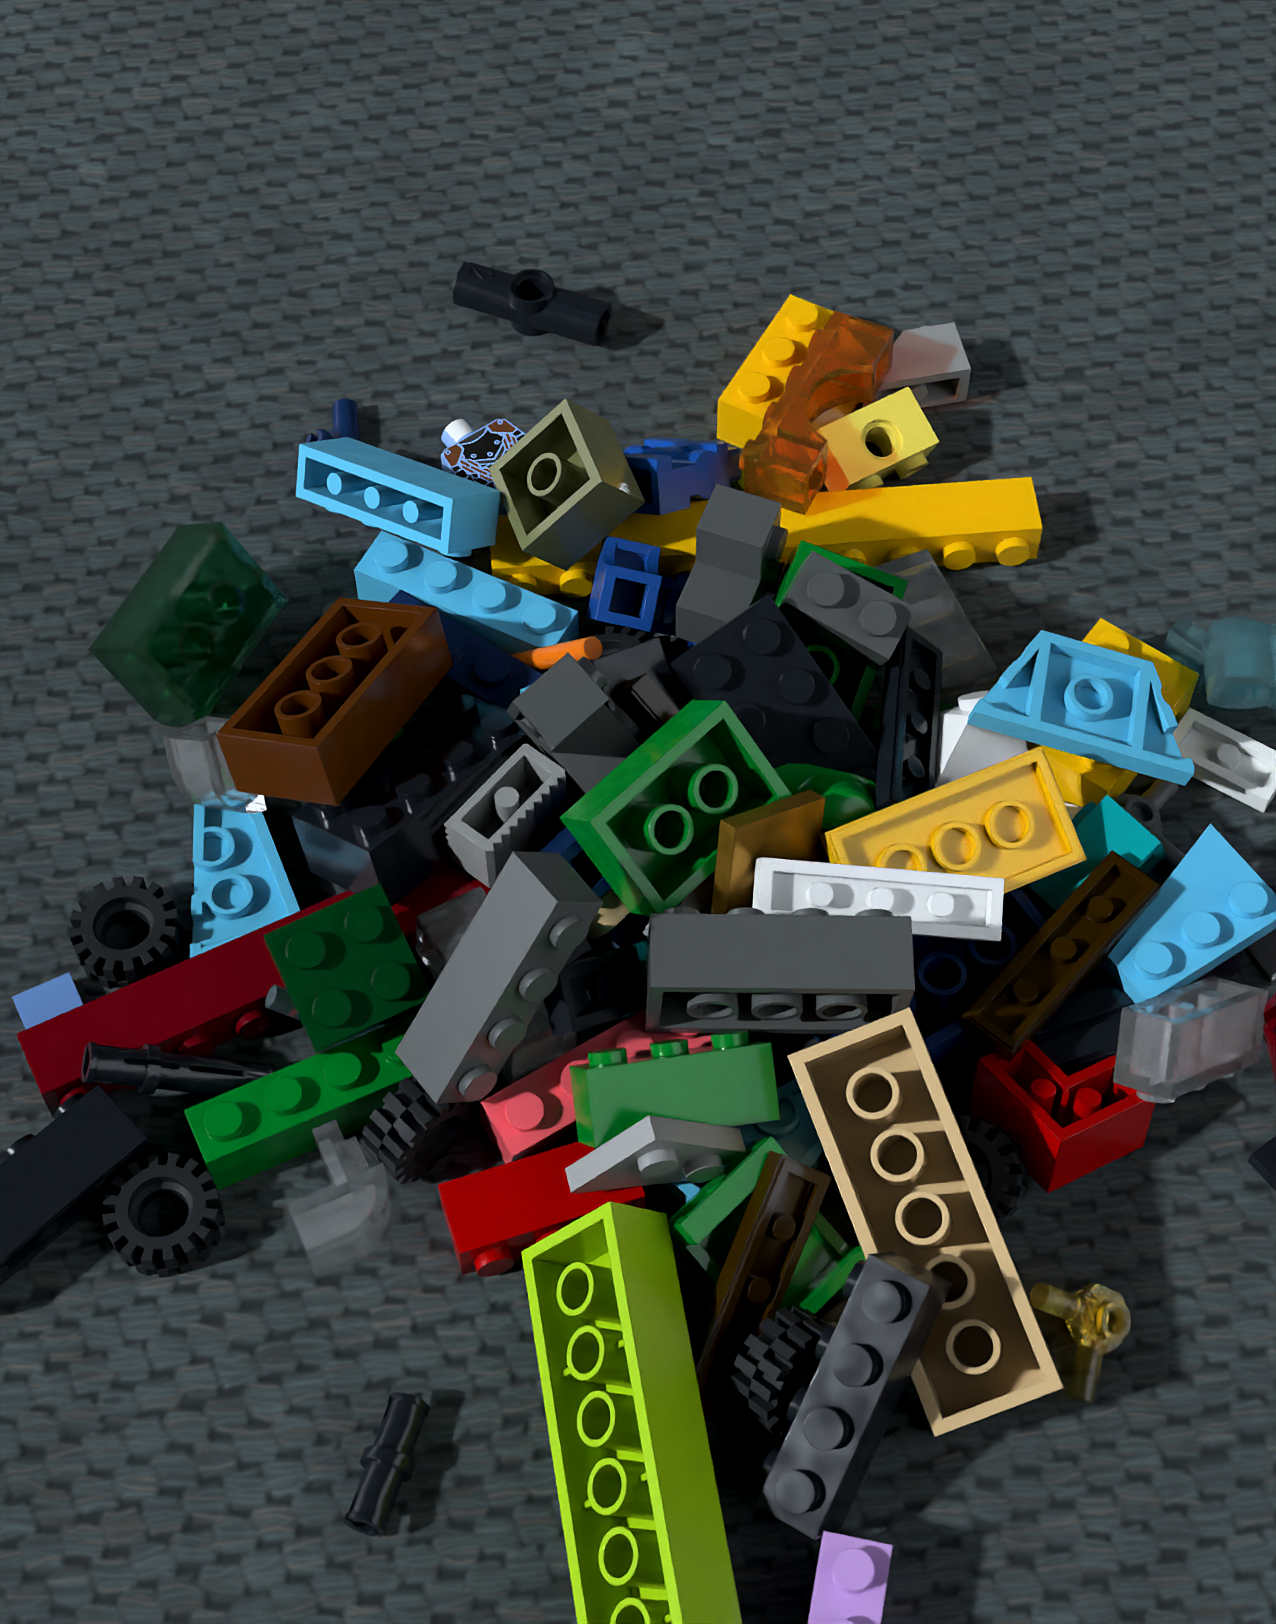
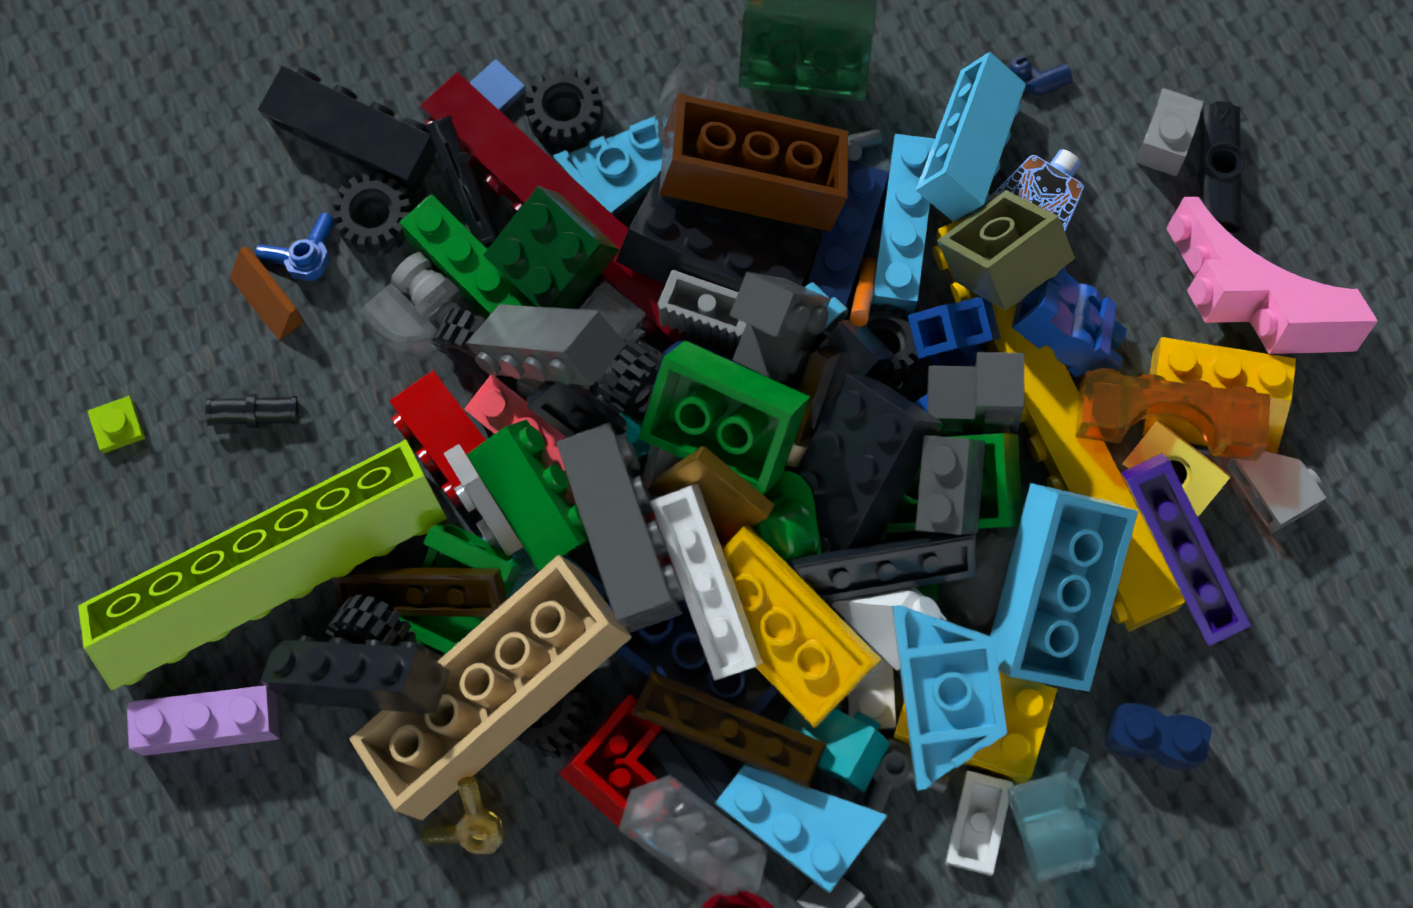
camera: 75 degrees right, 15 degrees up
(187, 1327) = (306, 257): none -> blue piece
(215, 1396) = (264, 294): none -> dark orange slope
(293, 1176) = (416, 277): none -> light grey wheel
(469, 333) = (1170, 132): none -> light grey slope
(690, 313) = (1243, 287): none -> bright pink arch
(962, 445) = (1185, 549): none -> dark purple brick
(983, 564) = (1061, 587): none -> medium azure brick
(1174, 556) = (1144, 732): none -> dark blue brick

